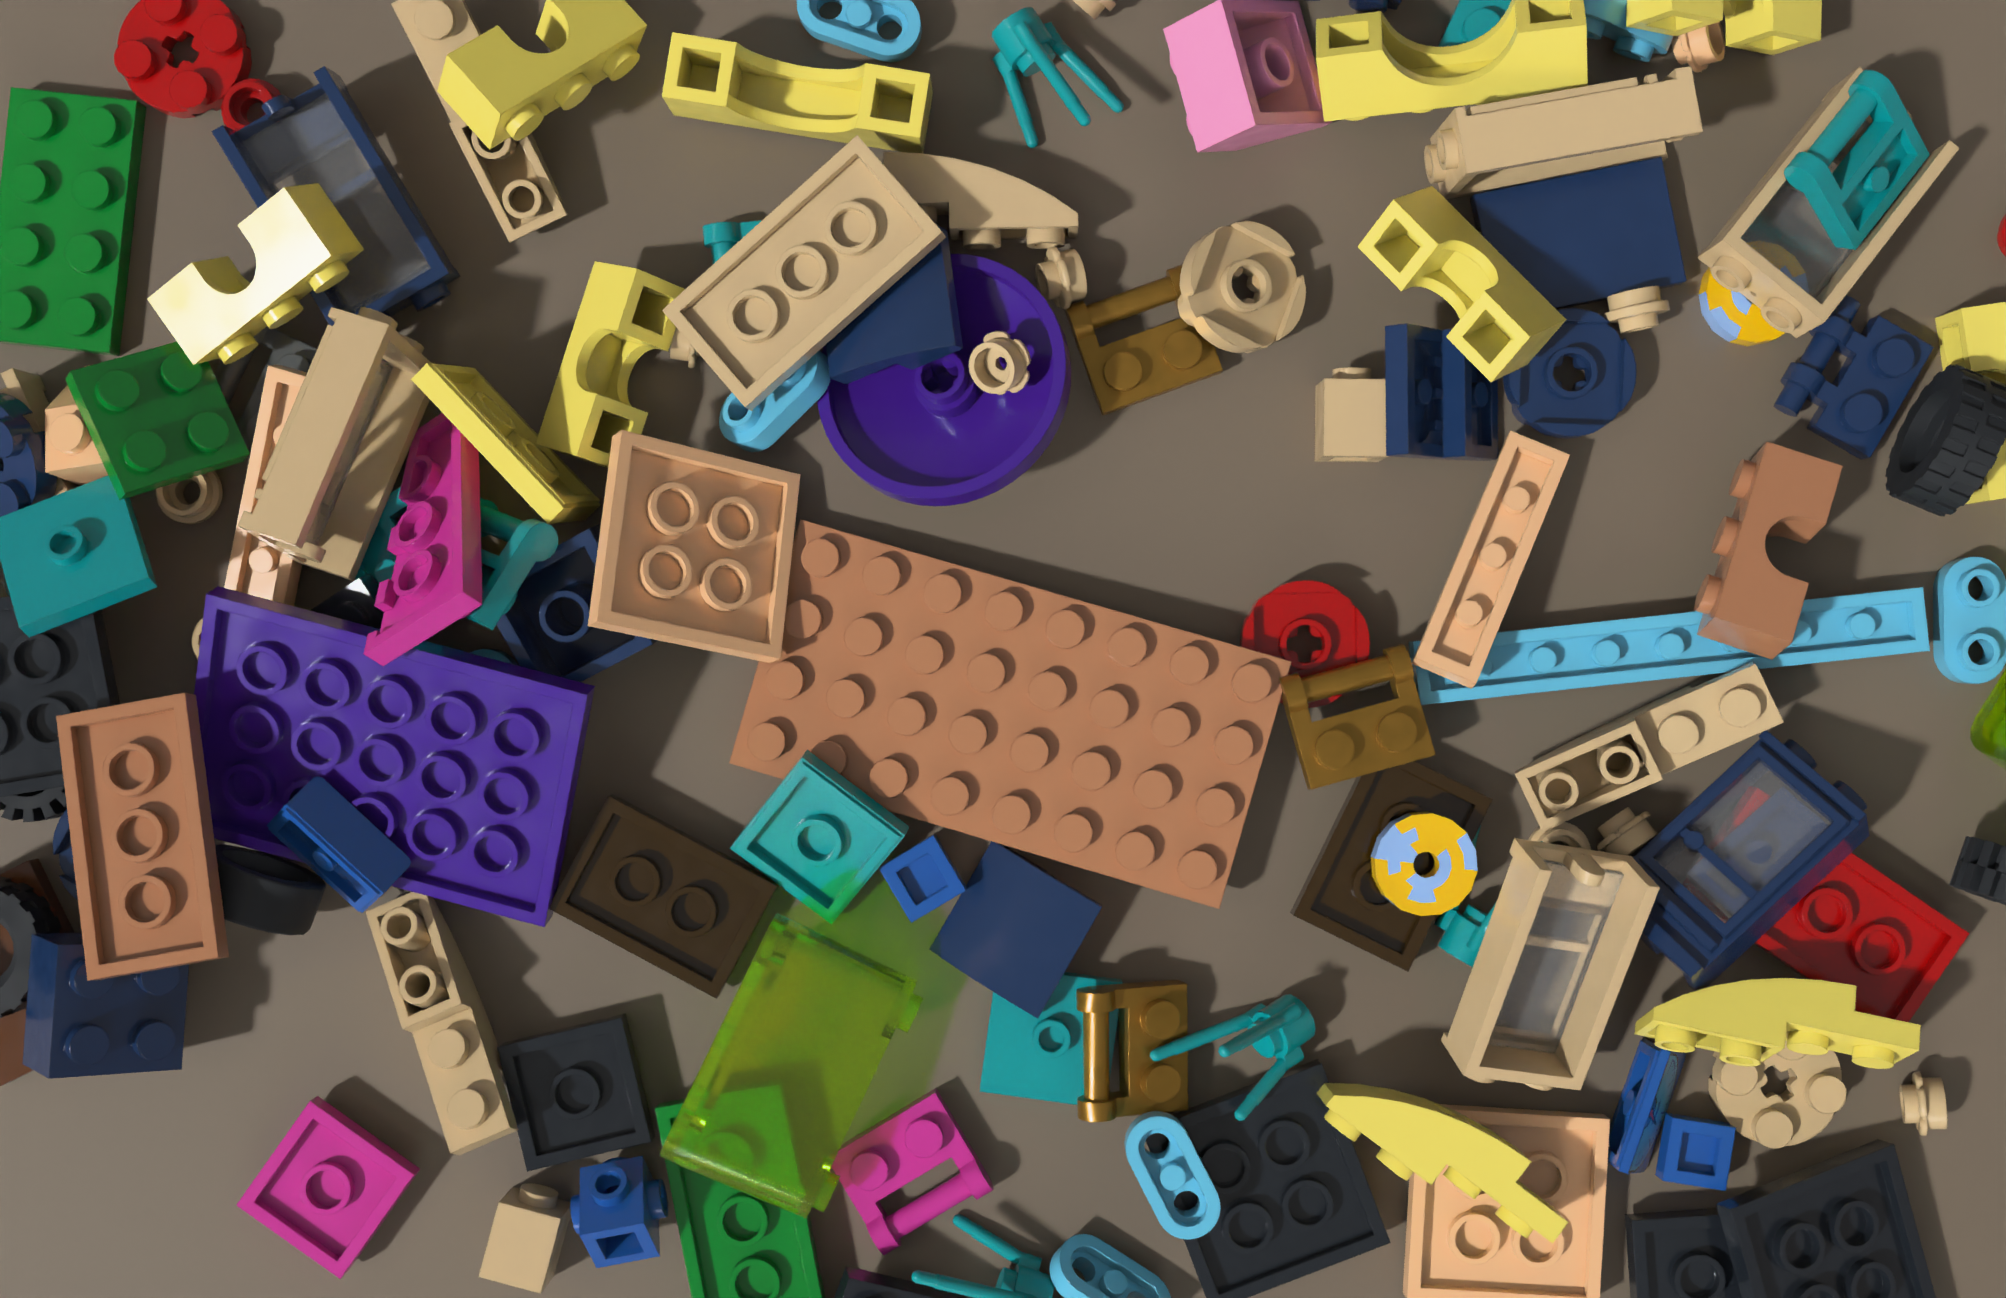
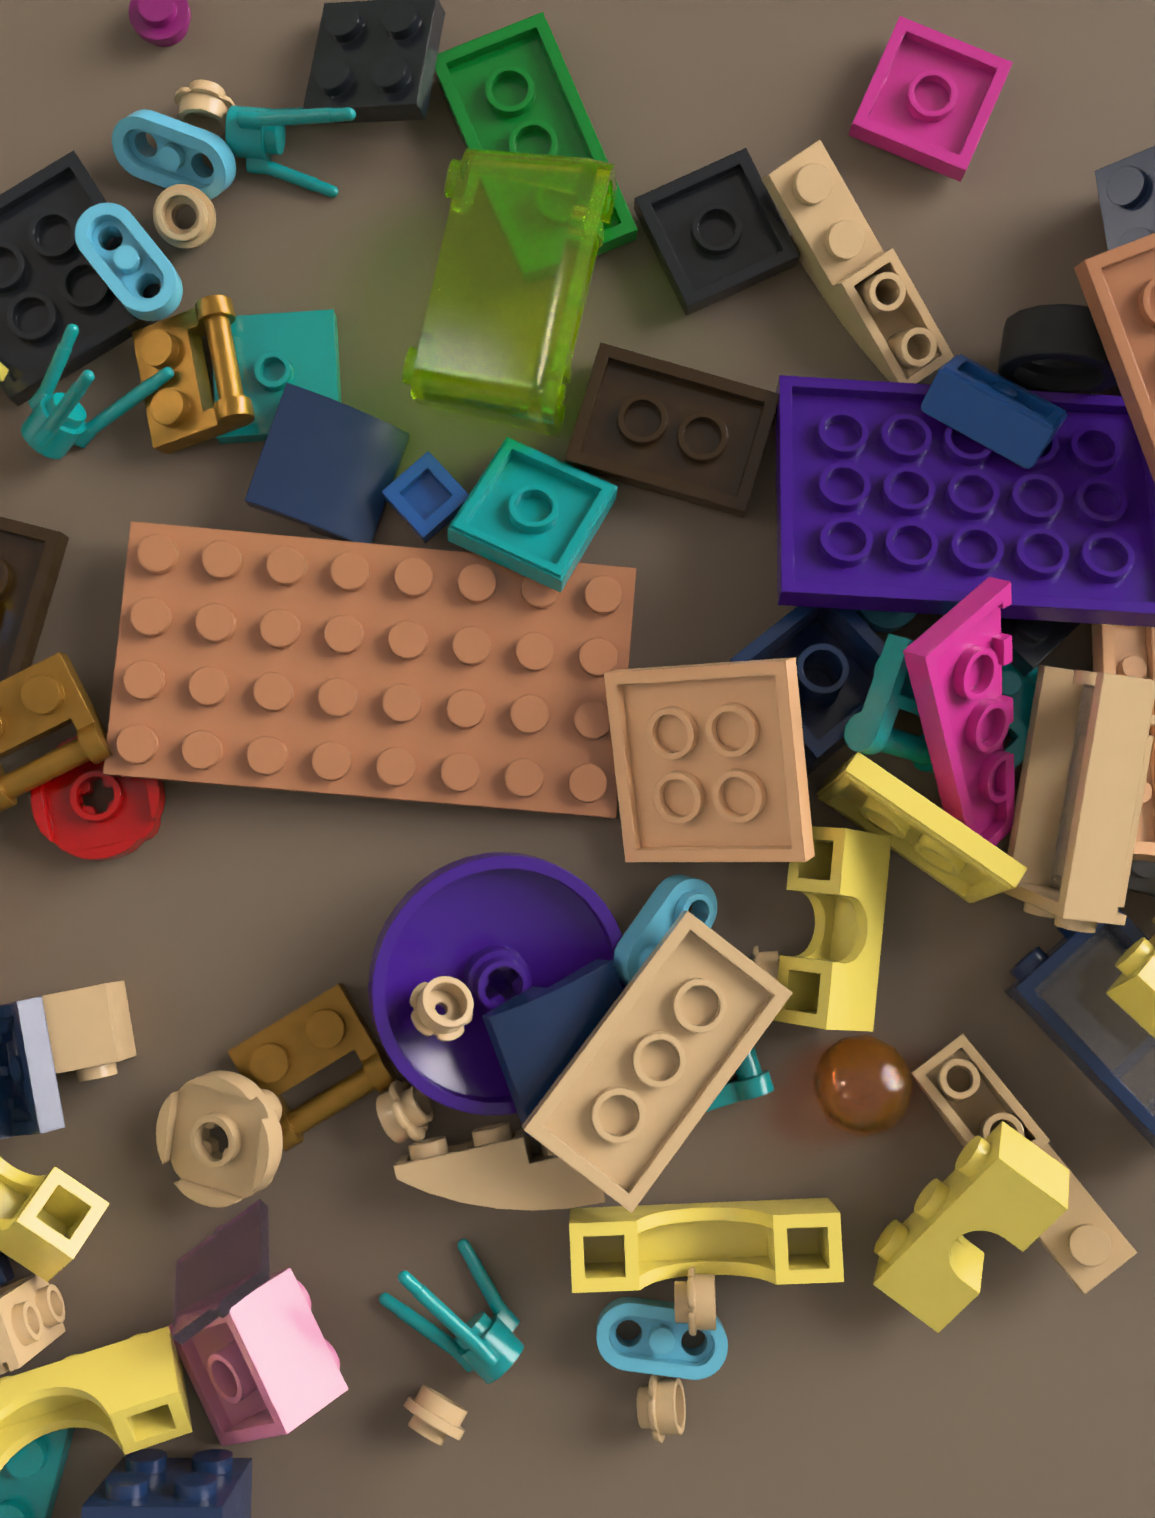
camera: 175 degrees right, 5 degrees down
(526, 1238) = (733, 87): tan brick -> none
(616, 213) = (862, 1085): none -> clear orange hair
(619, 1211) = (650, 127): blue brick -> none
(816, 42) = (696, 1301): none -> tan plate
(898, 1153) = (398, 241): dark pink plate -> none
(1130, 1210) = (165, 214): none -> tan plate
(1261, 161) = (221, 1271): none -> piece

